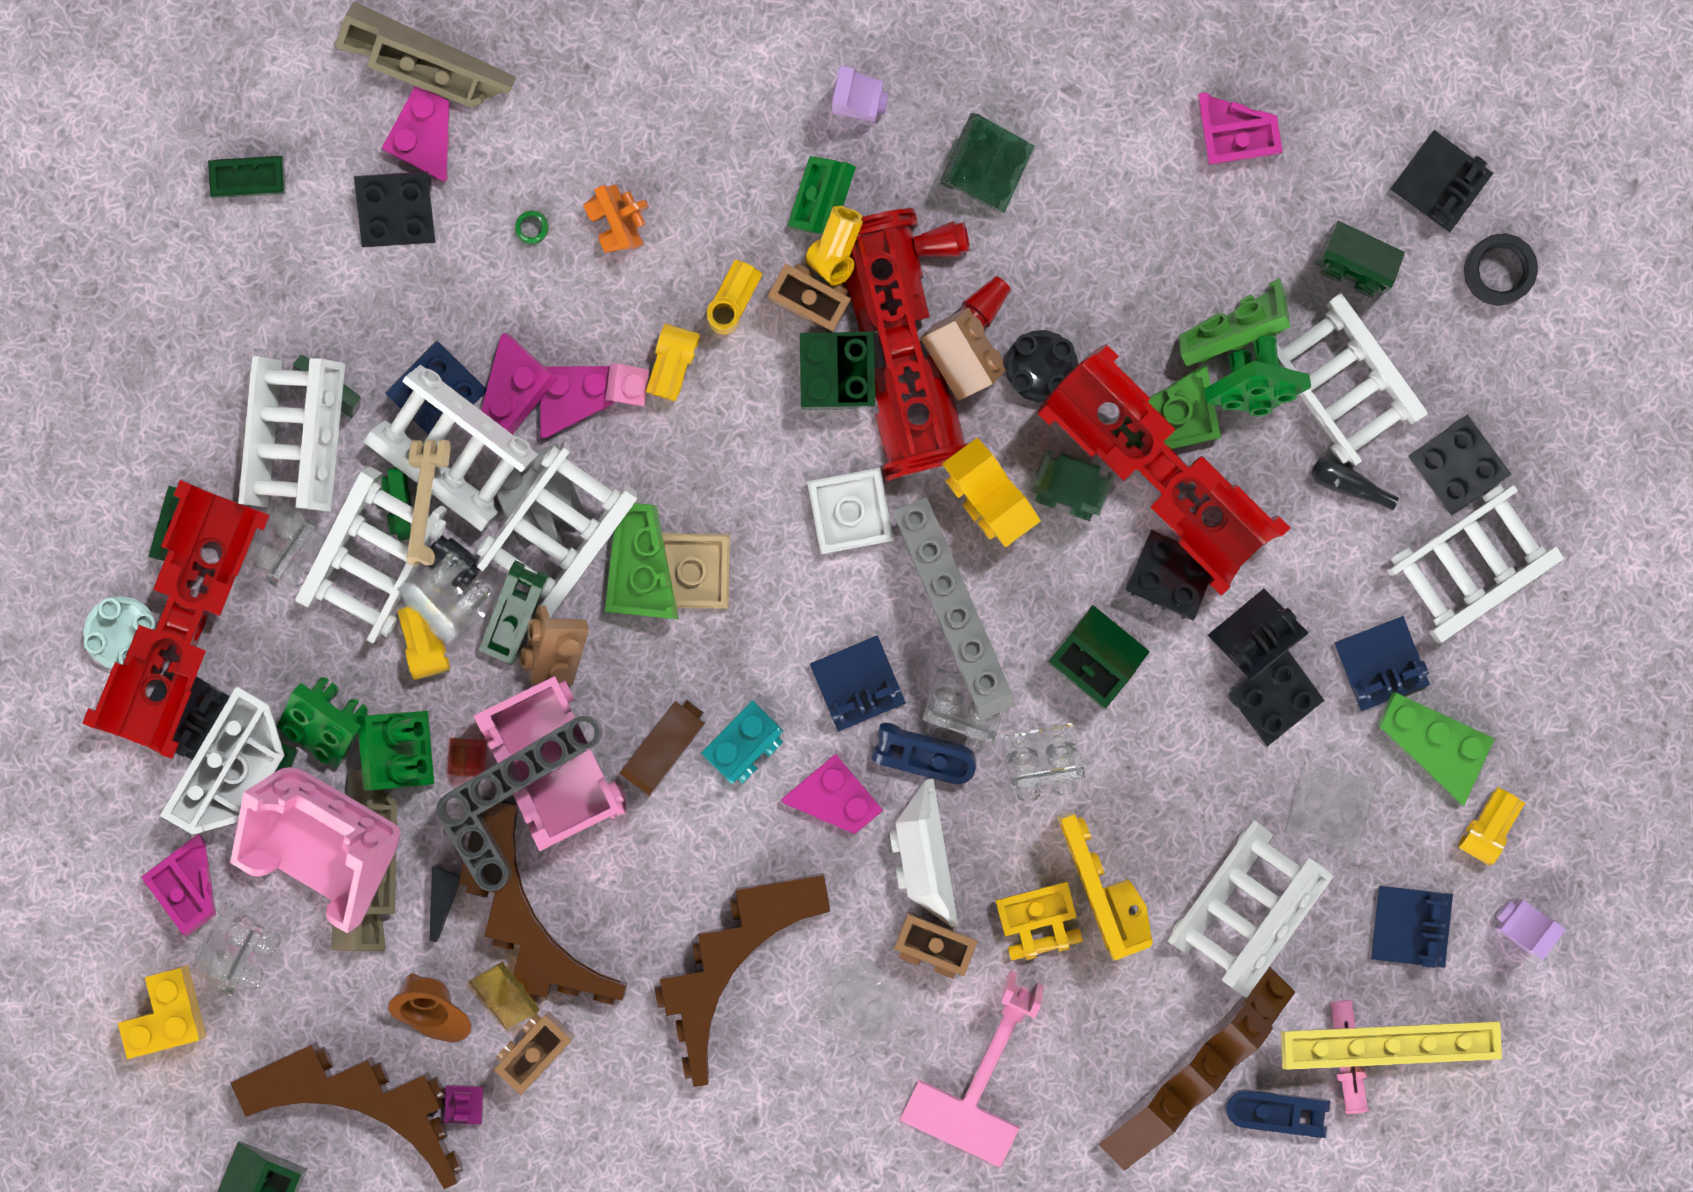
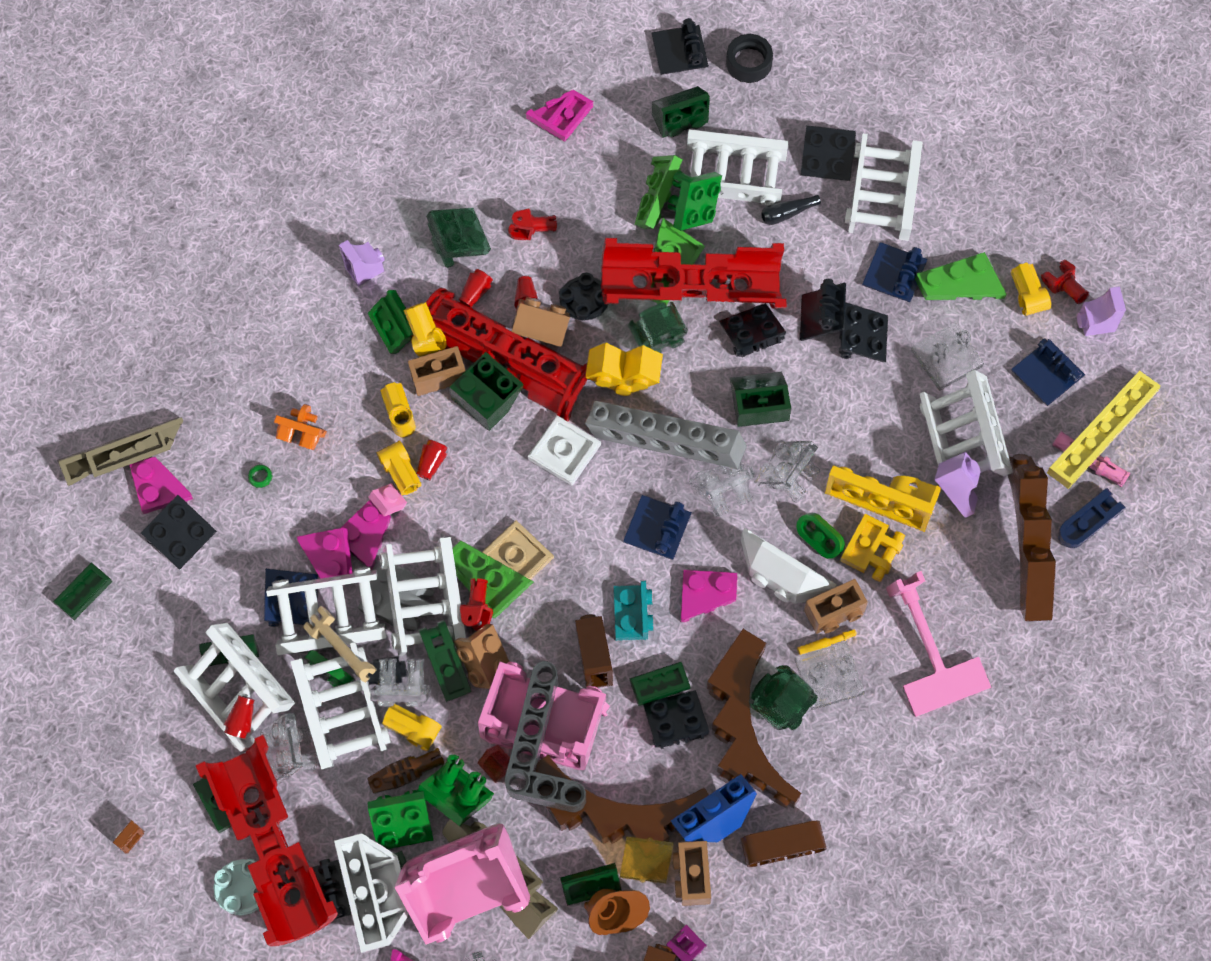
camera: 45 degrees left, 20 degrees down
(61, 477) = (128, 837): none -> dark orange tile
(264, 475) = (240, 717): none -> red cone
(372, 677) = (404, 771): none -> reddish brown hinge
(434, 961) = (584, 884): none -> dark green plate
(443, 890) = (556, 843): black piece -> none
(595, 591) = (476, 607): none -> red piece
(609, 1022) = (717, 813): none -> blue slope
(646, 1110) = (783, 842): none -> reddish brown beam
(674, 889) = (676, 719): none -> black hinge
(695, 840) = (659, 683): none -> dark green plate
(712, 385) = (431, 458): none -> red cone
(786, 981) = (783, 698): none -> clear green brick
(890, 961) = (825, 642): none -> yellow piece
(924, 755) = (728, 525): dark blue plate -> none
(1001, 857) = (820, 536): none -> green plate
(1066, 224) = (530, 224): none -> red piece
(1185, 951) = (957, 480): none -> lavender arch
(1537, 858) = (1066, 282): none -> red piece

